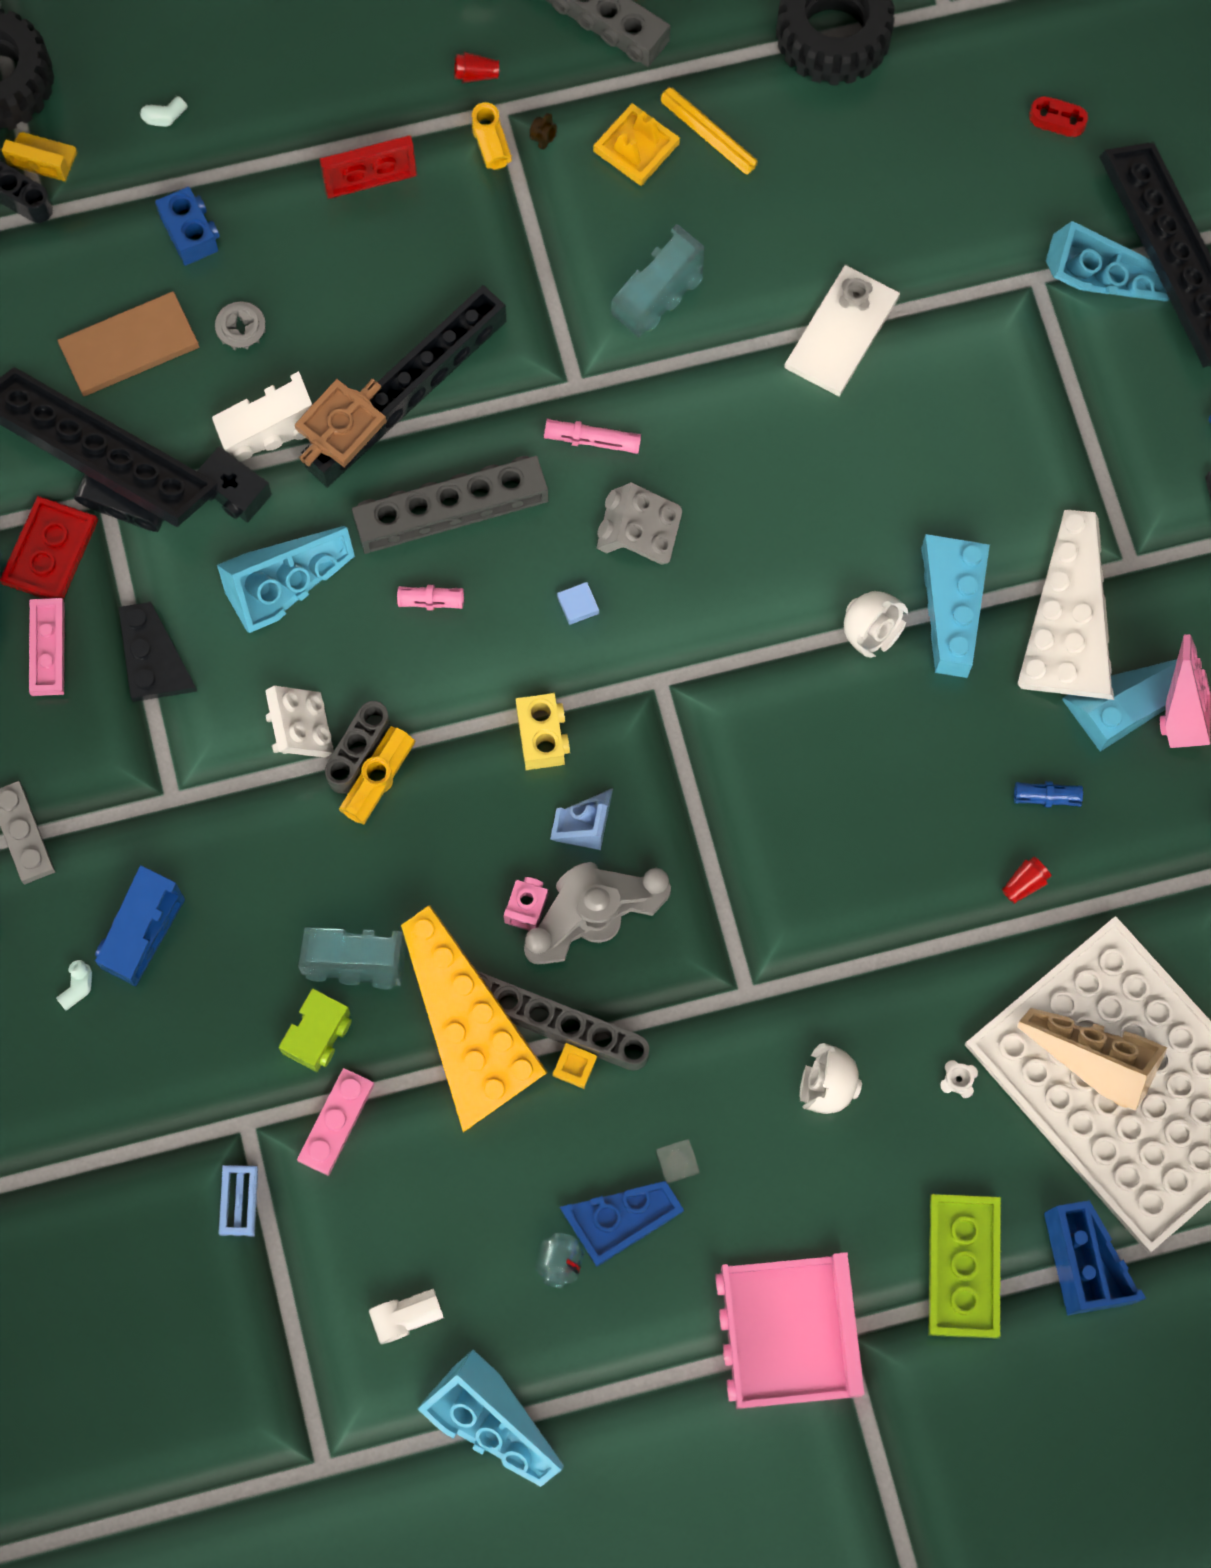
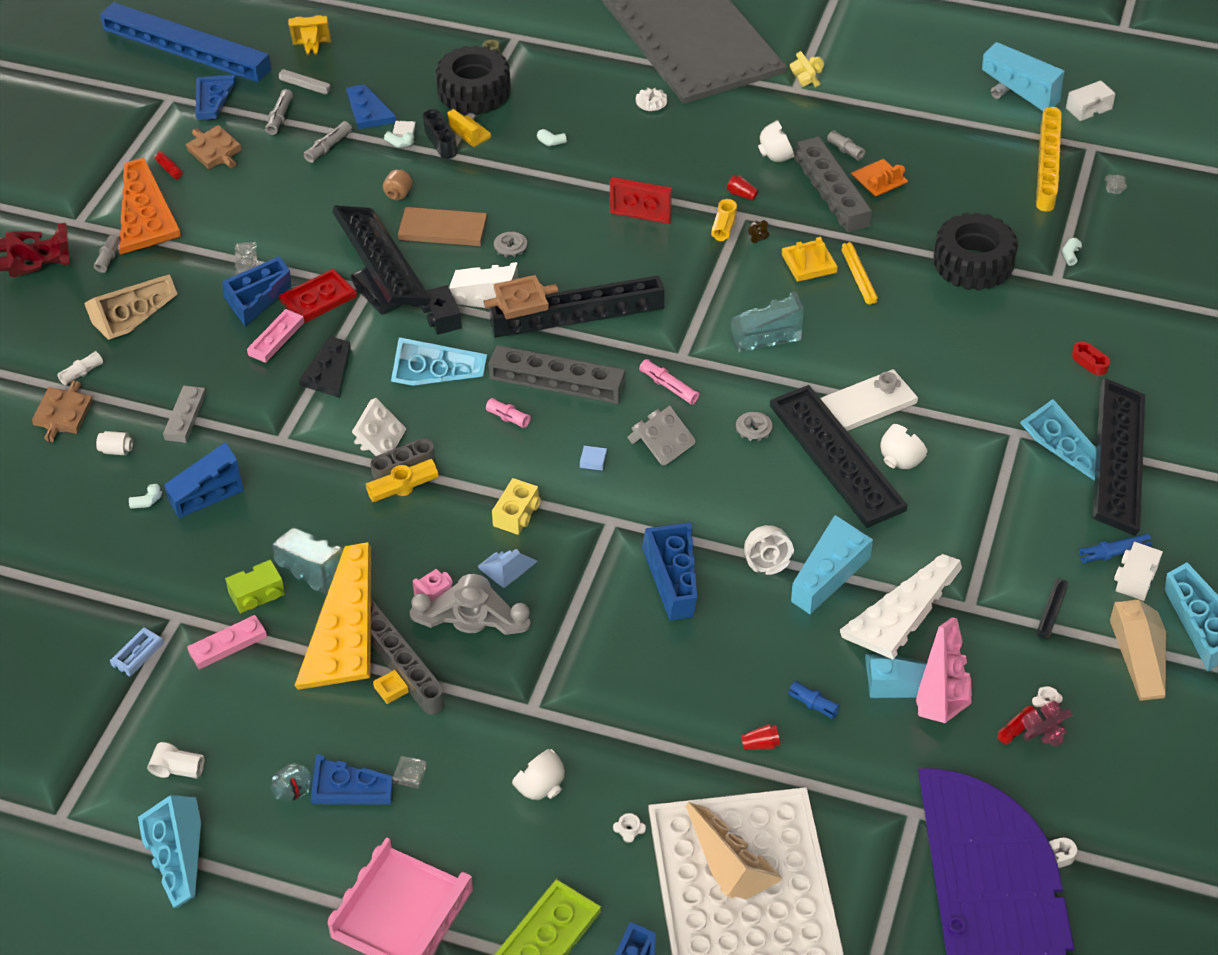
camera: 35 degrees right, 25 degrees down
(21, 310) = (397, 184): none -> medium nougat head
(185, 226) = (519, 188): blue brick -> none
(734, 433) = (758, 420): none -> light grey gear
(787, 714) = (672, 567): none -> blue wedge
(860, 434) = (838, 456): none -> black plate
(936, 389) = (901, 449): none -> white cylinder

